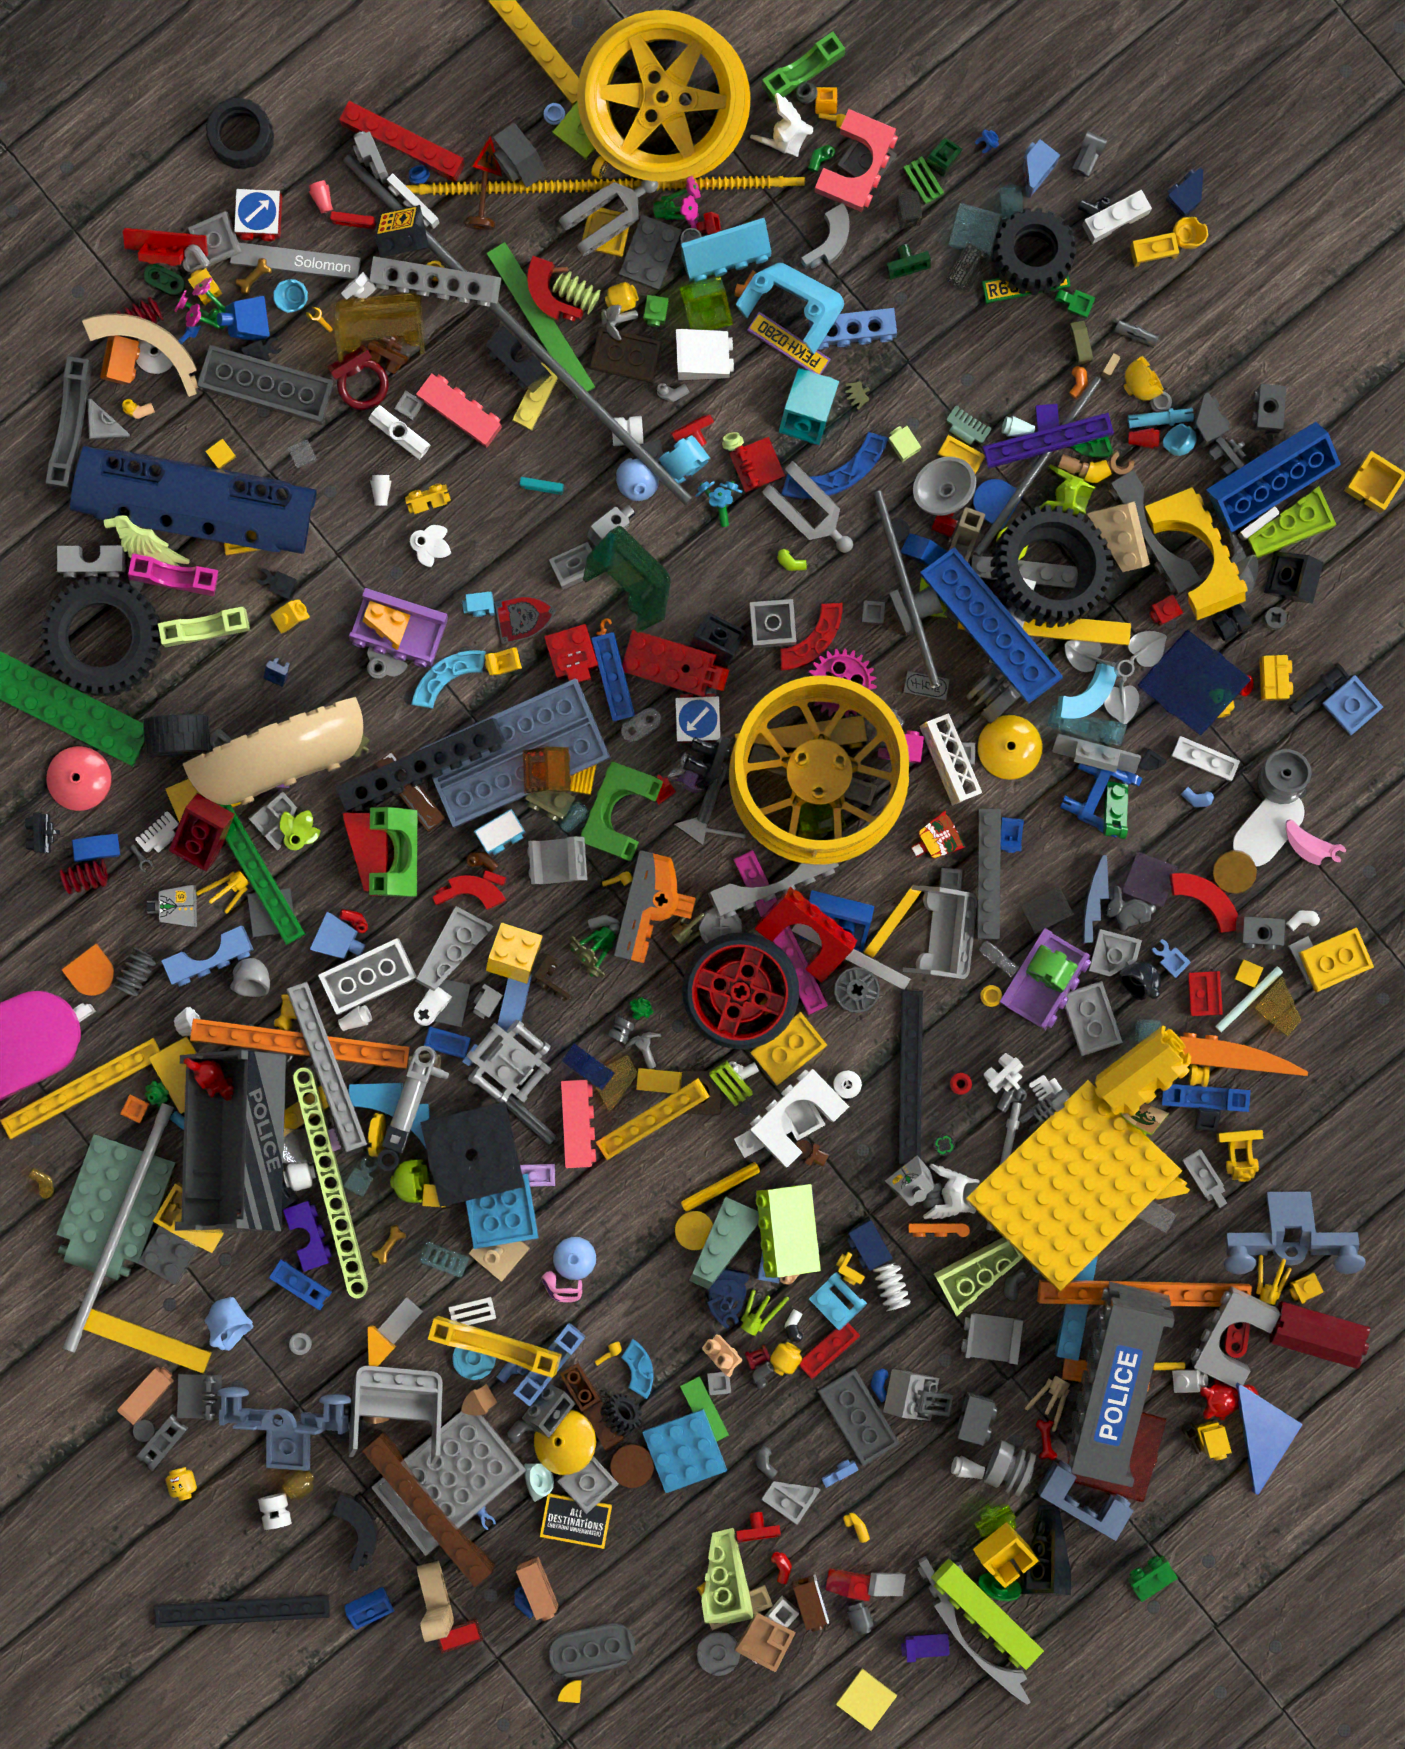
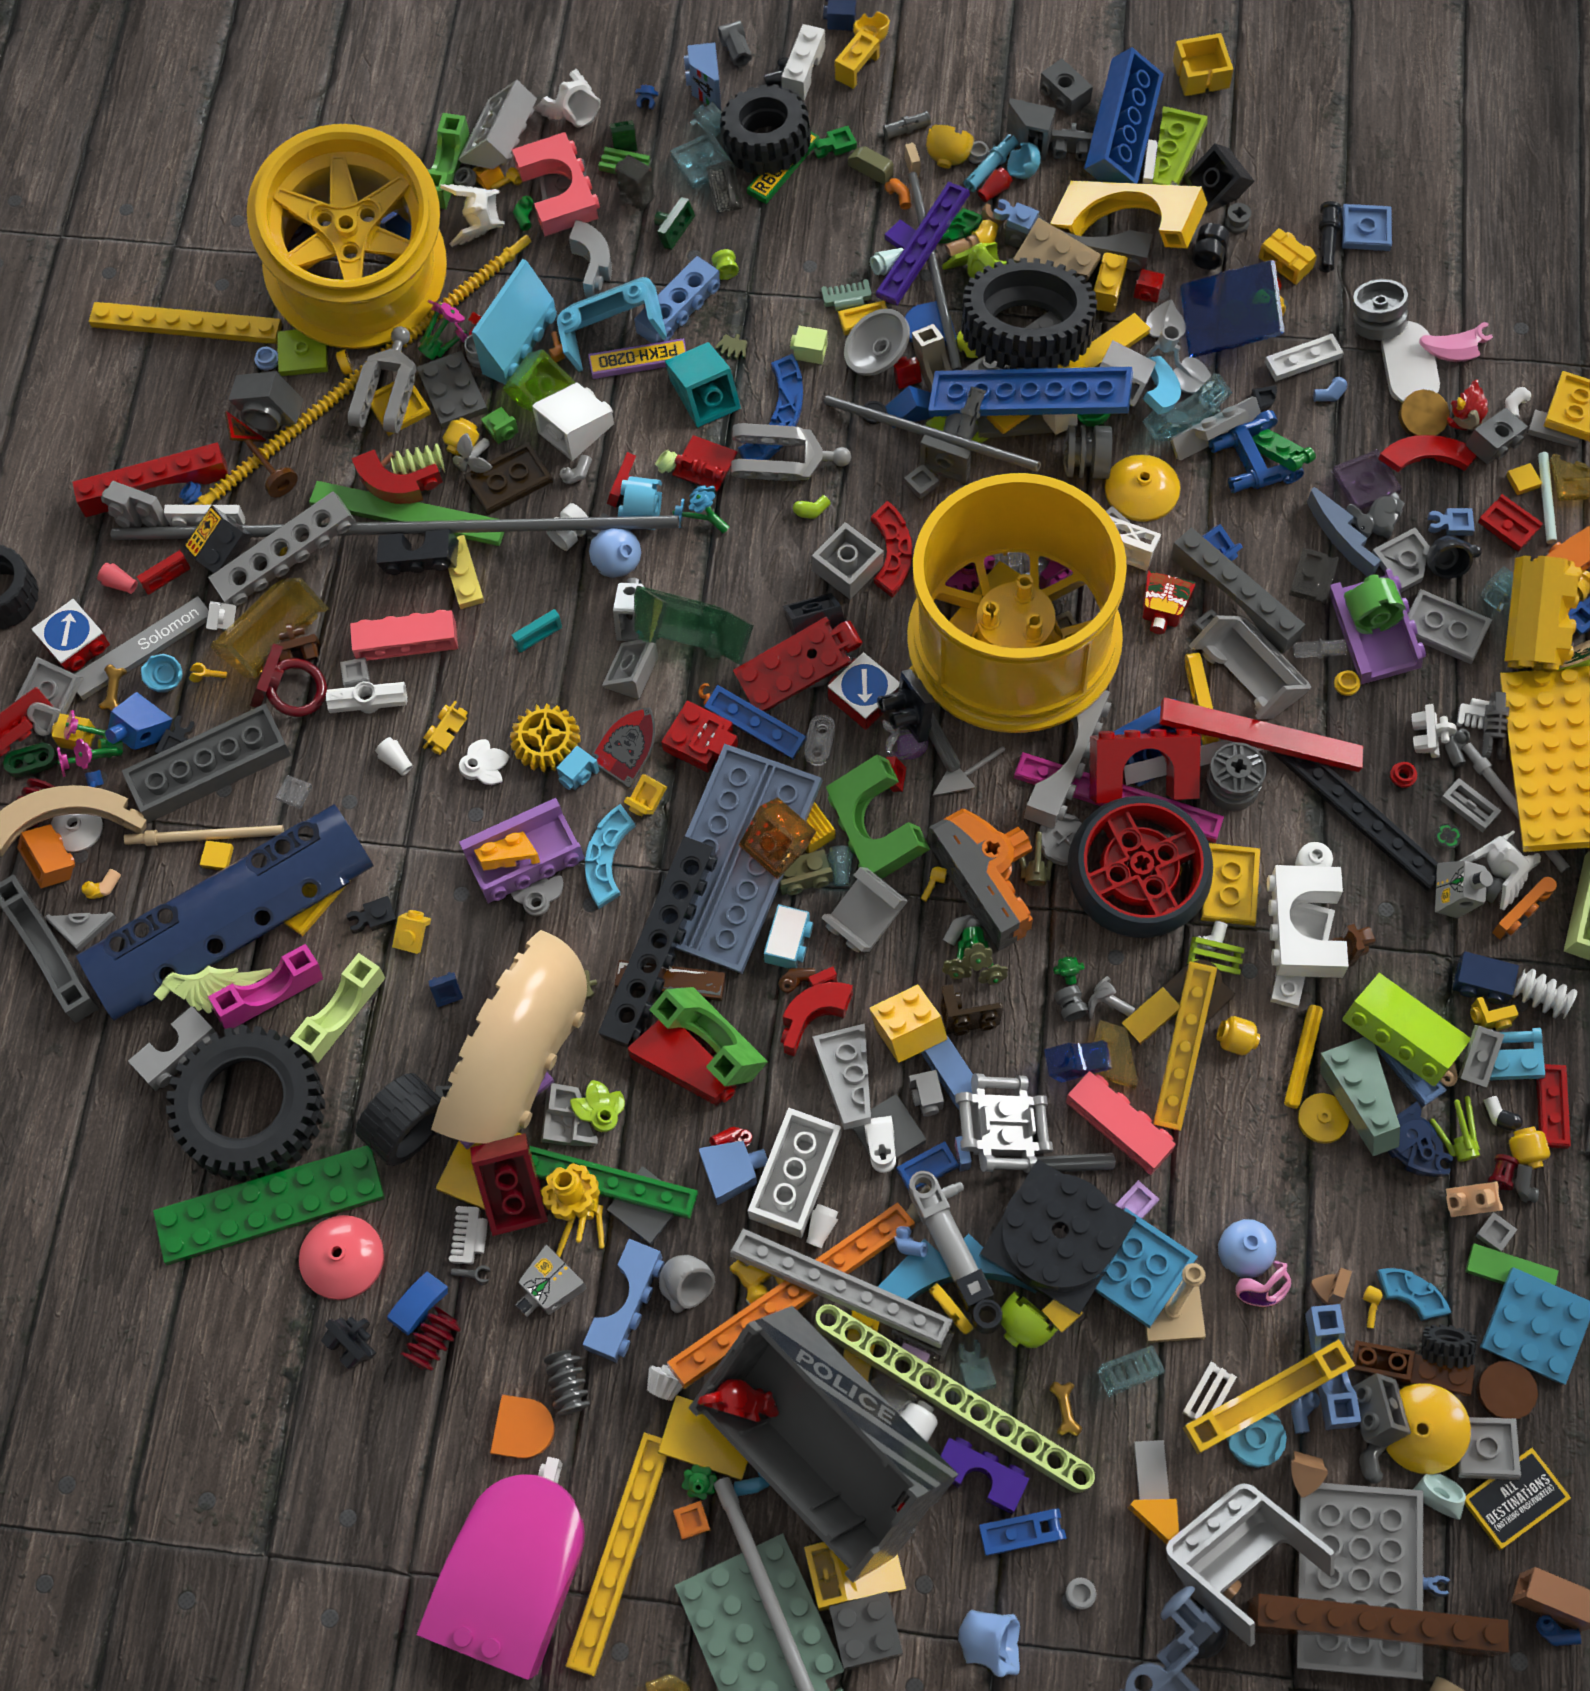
camera: 45 degrees left, 20 degrees down
(194, 406) = (153, 837): none -> tan bar
(232, 868) = (570, 1192): none -> yellow plant
(387, 1077) = (907, 1245): none -> medium blue arm
(487, 557) = (526, 733): none -> yellow gear
(596, 1323) = (1332, 1287): none -> medium nougat tile
(694, 1140) = (1238, 1035): none -> yellow head
(813, 1285) = (1481, 1056): none -> light grey plate
(862, 74) = (499, 127): none -> light grey slope
(897, 981) = (1261, 734): none -> tile
(910, 328) = (725, 262): none -> lime wheel
(933, 102) = (573, 102): none -> white helmet
(938, 604) = (970, 412): none -> dark grey pin
(979, 1139) = (1467, 808): none -> light grey tile
(1074, 661) = (1121, 356): none -> light grey slope
(1127, 484) = (1018, 217): none -> medium blue plate
(1139, 585) = (1110, 281): none -> yellow brick
(1259, 899) = (1469, 408): none -> red hair

